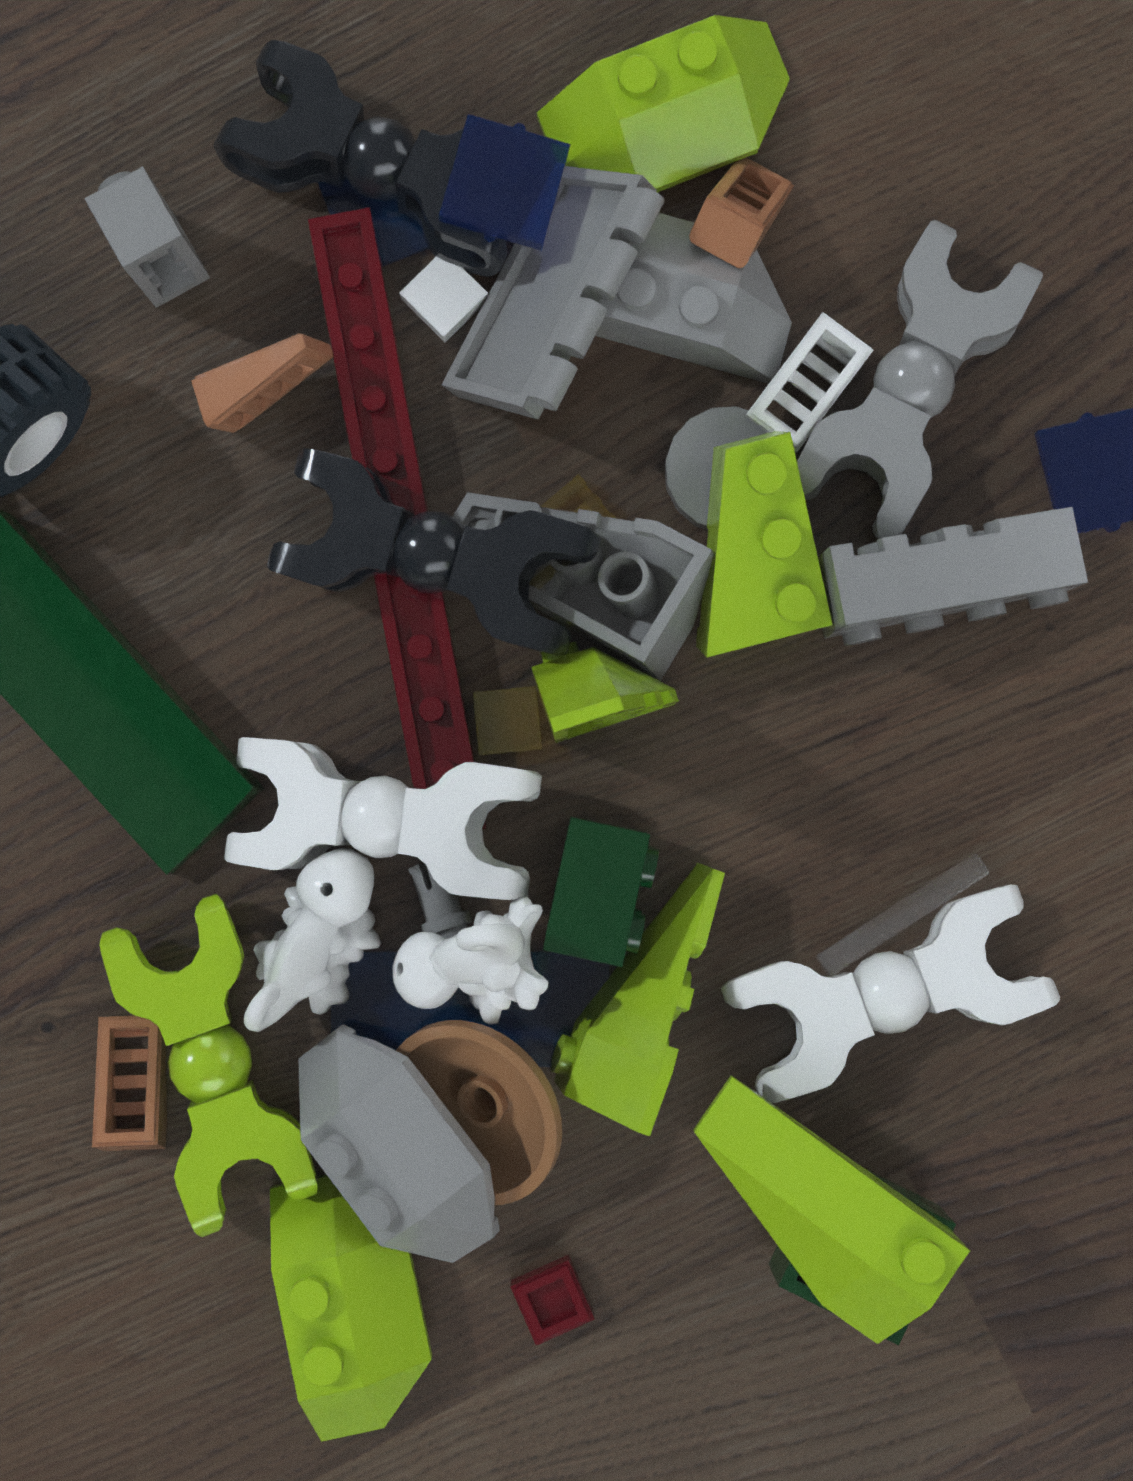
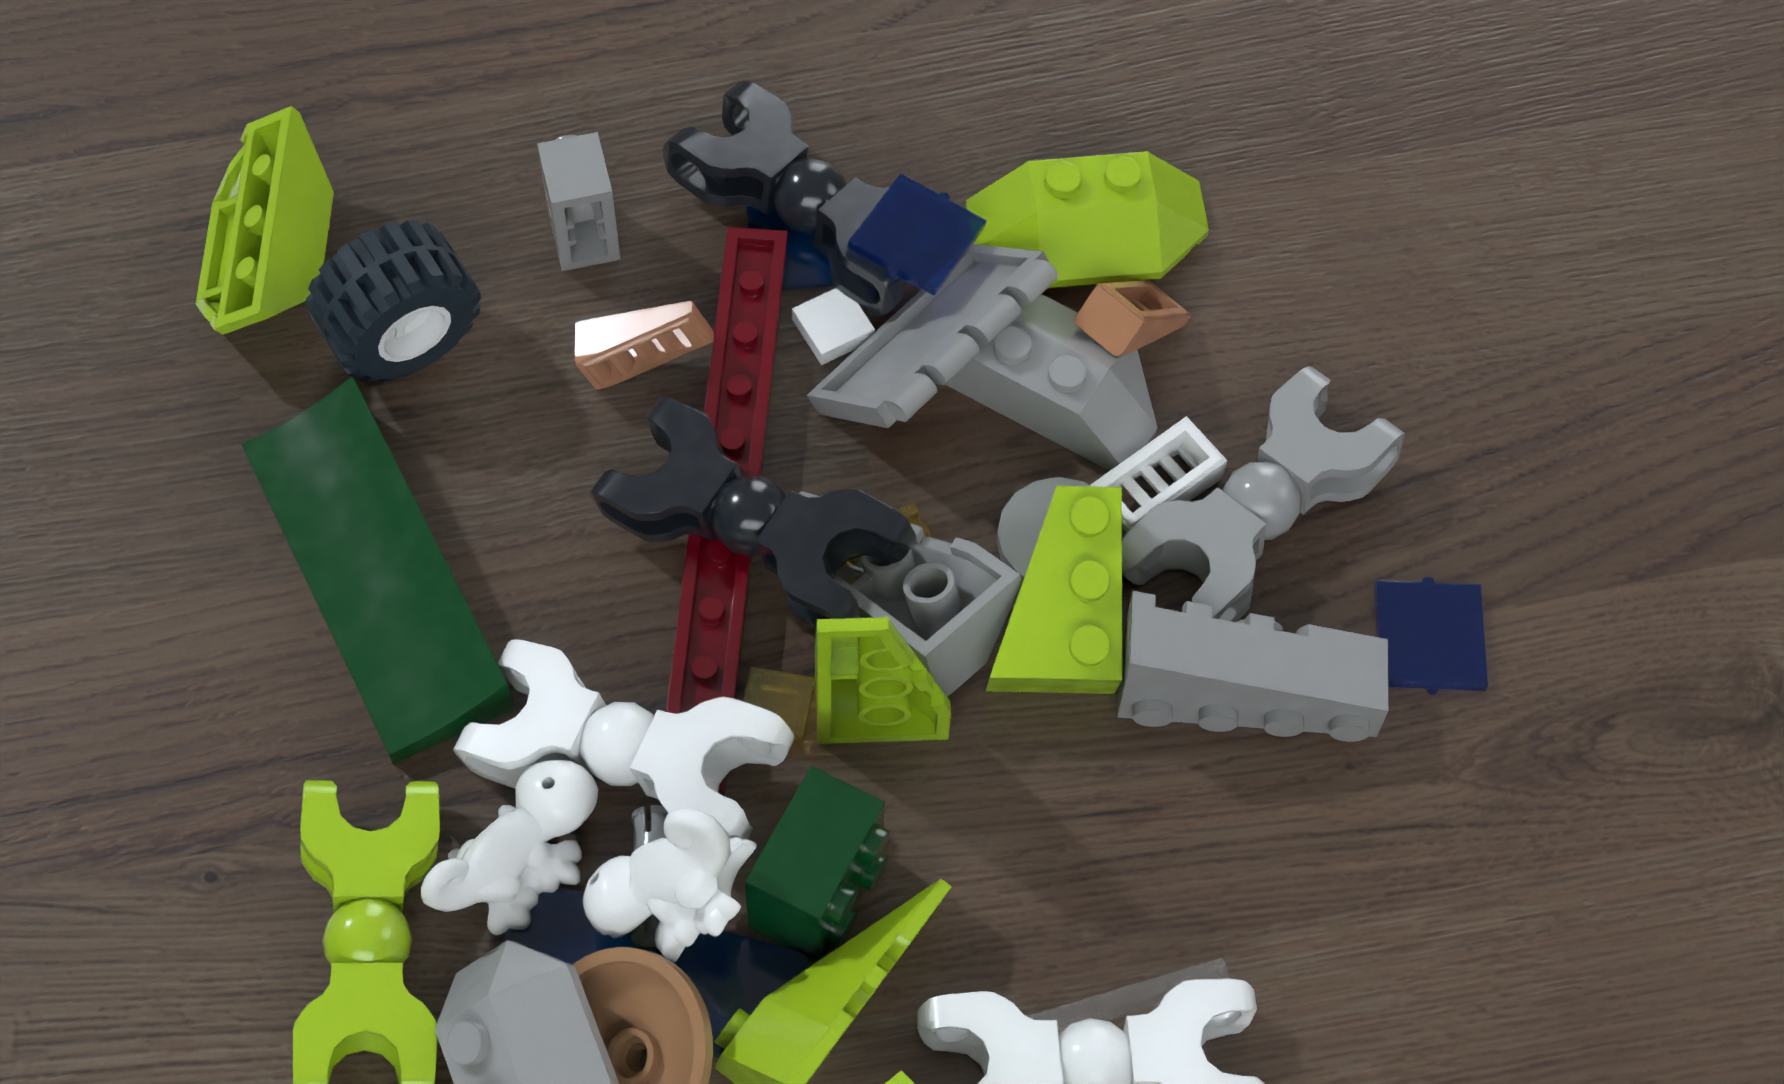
camera: 15 degrees right, 25 degrees down
(106, 1109) = (263, 992): nougat slope -> none

